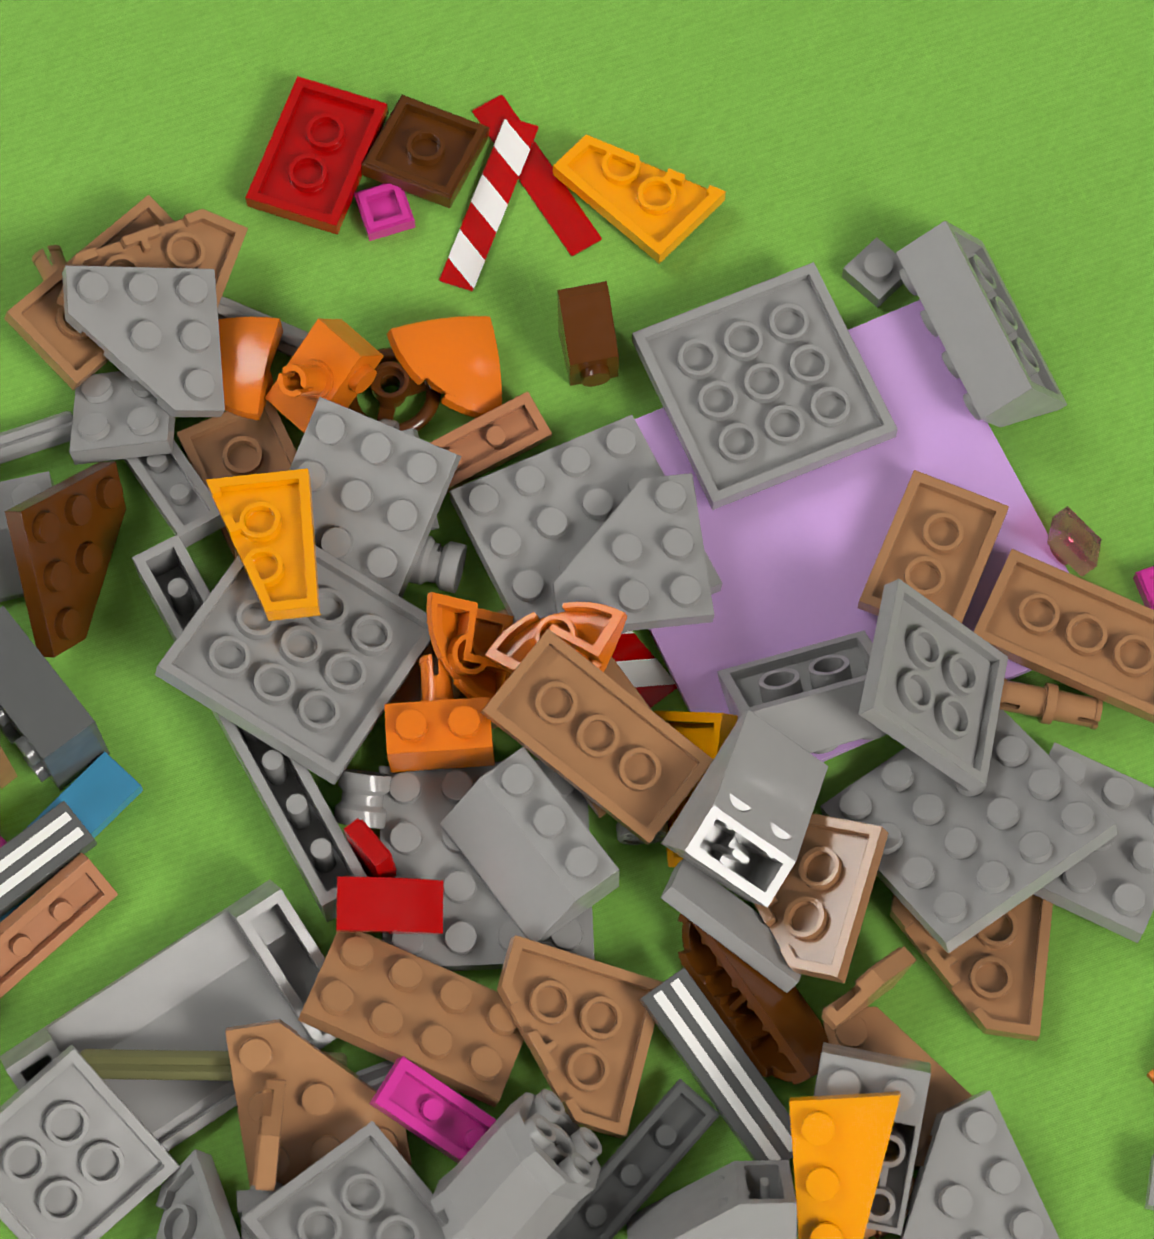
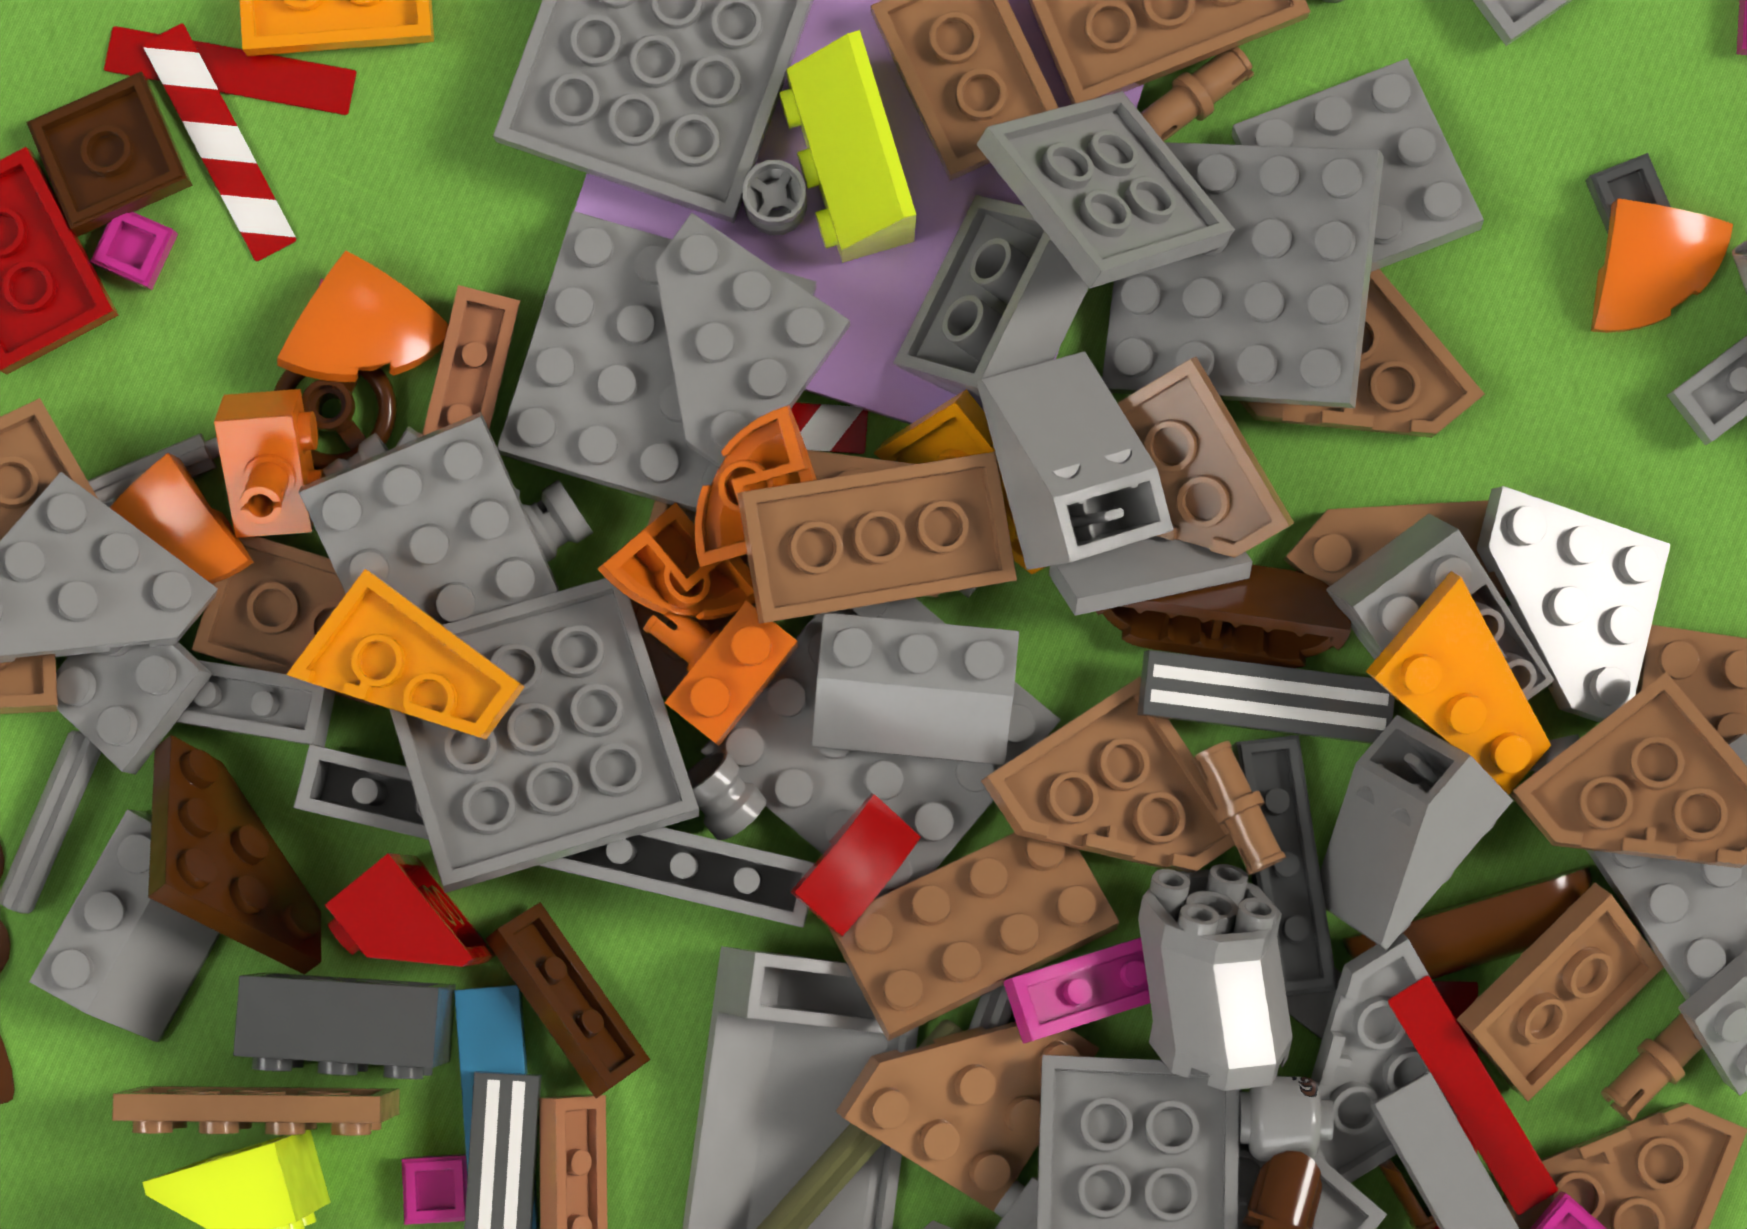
camera: 50 degrees left, 15 degrees up
(120, 662) = (404, 916): none -> red slope
(156, 820) = (567, 999): none -> reddish brown plate
(269, 1135) = (975, 1160): medium nougat tile -> none
(369, 850) = (790, 838): red tile -> none
(587, 334) = (455, 178): reddish brown slope -> none
(637, 1109) = (1238, 807): none -> medium nougat pin
(748, 504) = (777, 186): none -> light grey wheel
(815, 531) = (849, 150): none -> neon yellow slope
(869, 987) = (1311, 502): medium nougat tile -> none

